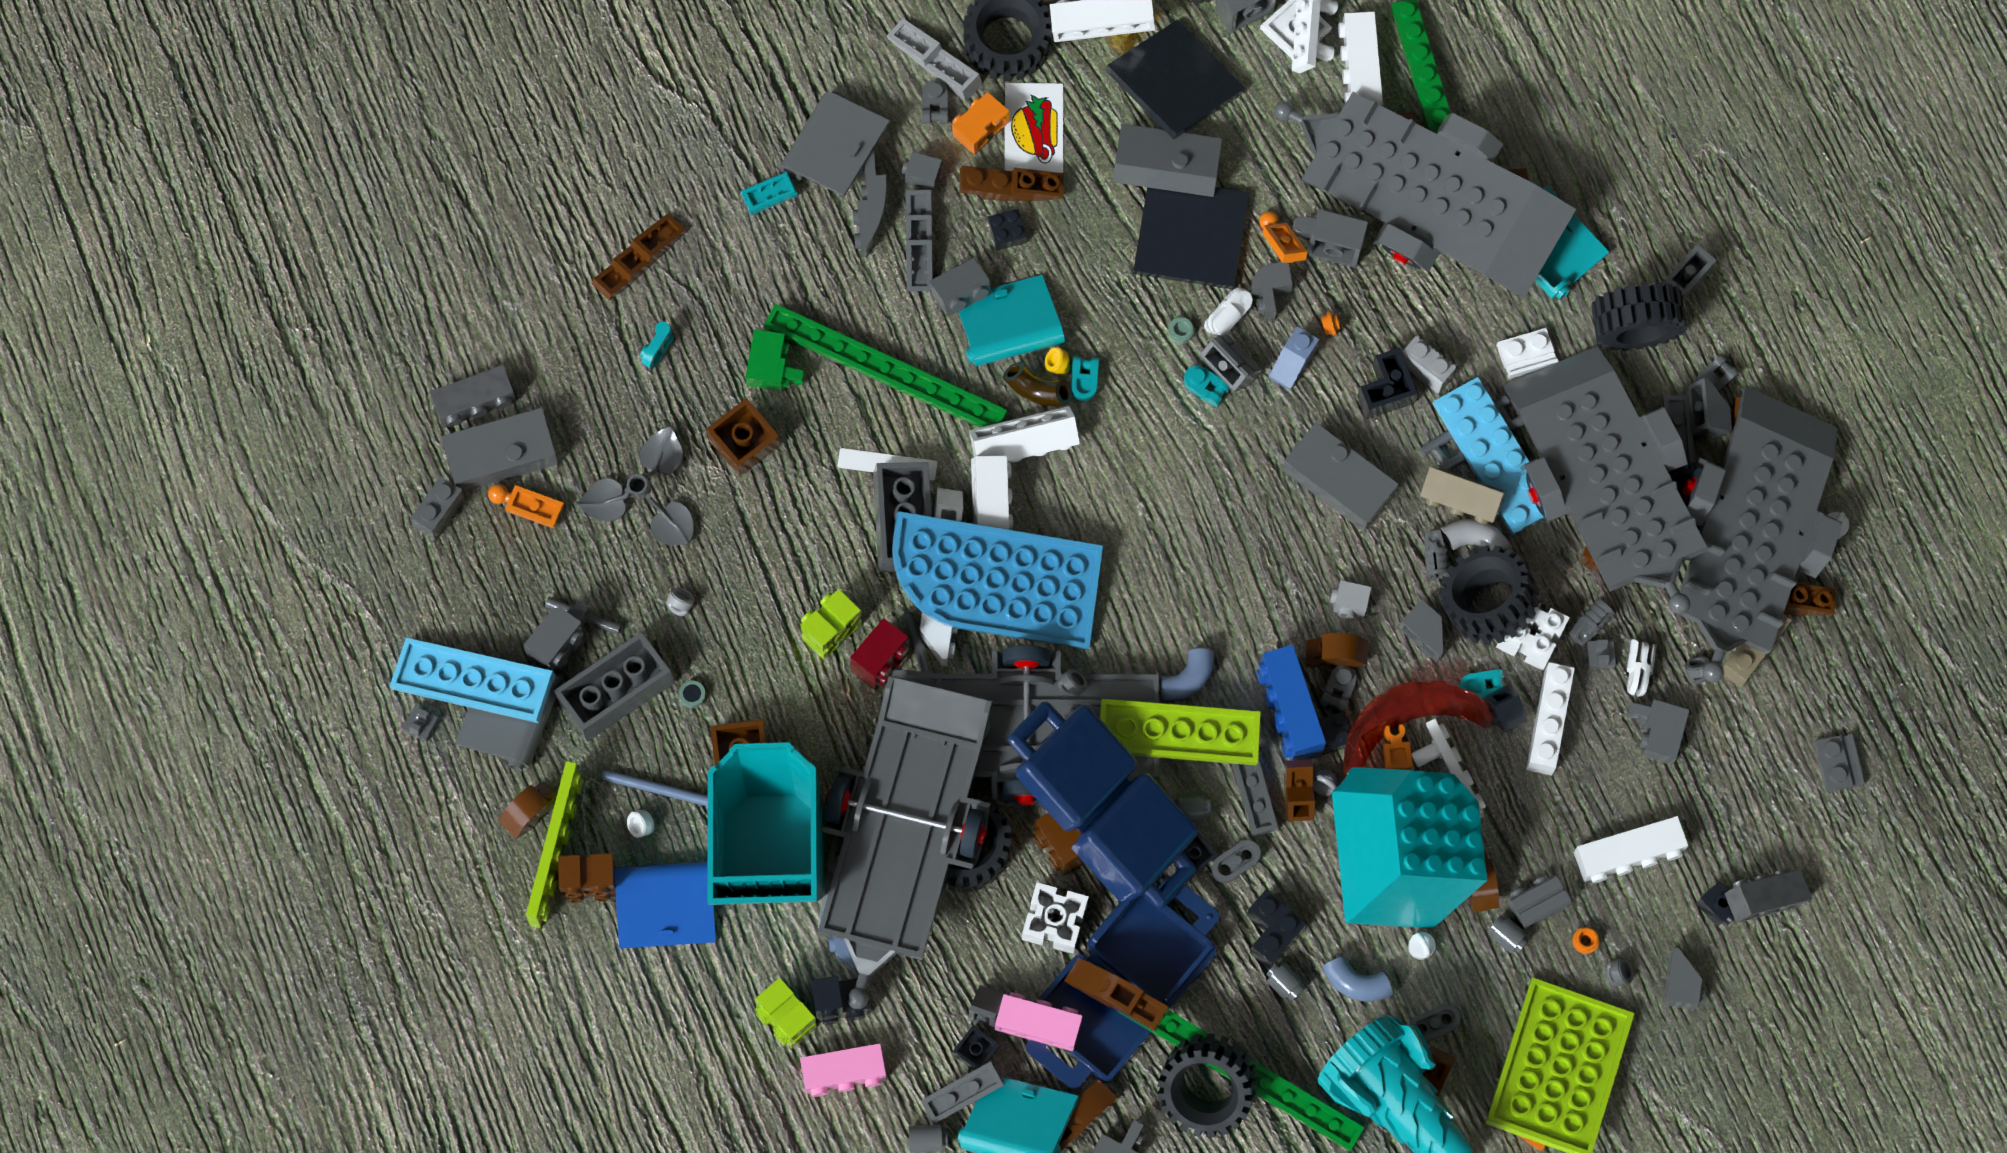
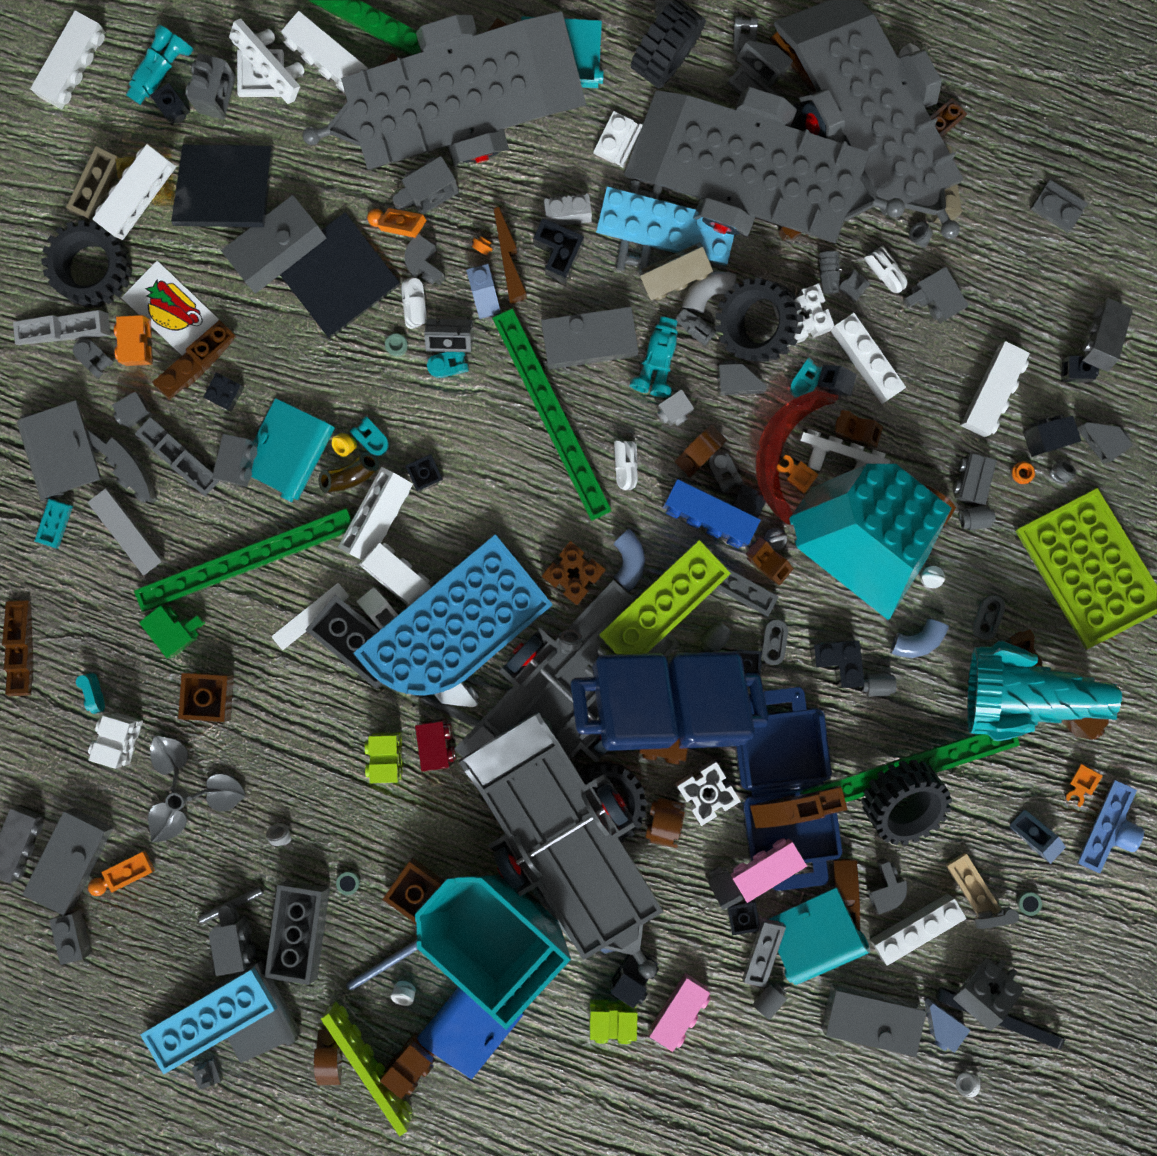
camera: 50 degrees left, 15 degrees up
(639, 396) = (115, 740): none -> white brick
(817, 255) = (125, 531): none -> light grey slope
(996, 906) = (666, 822): none -> reddish brown brick
(1097, 446) = (424, 473): none -> black piece
(1121, 652) = (573, 559): none -> reddish brown brick
(1246, 506) = (551, 415): none -> green plate
(1265, 601) = (626, 464): none -> white arm
(1347, 346) = (508, 249): none -> reddish brown slope
(1378, 548) = (658, 358): none -> teal piece
(1482, 764) = (858, 430): none -> reddish brown brick
(1639, 932) = (1051, 434): none -> black brick

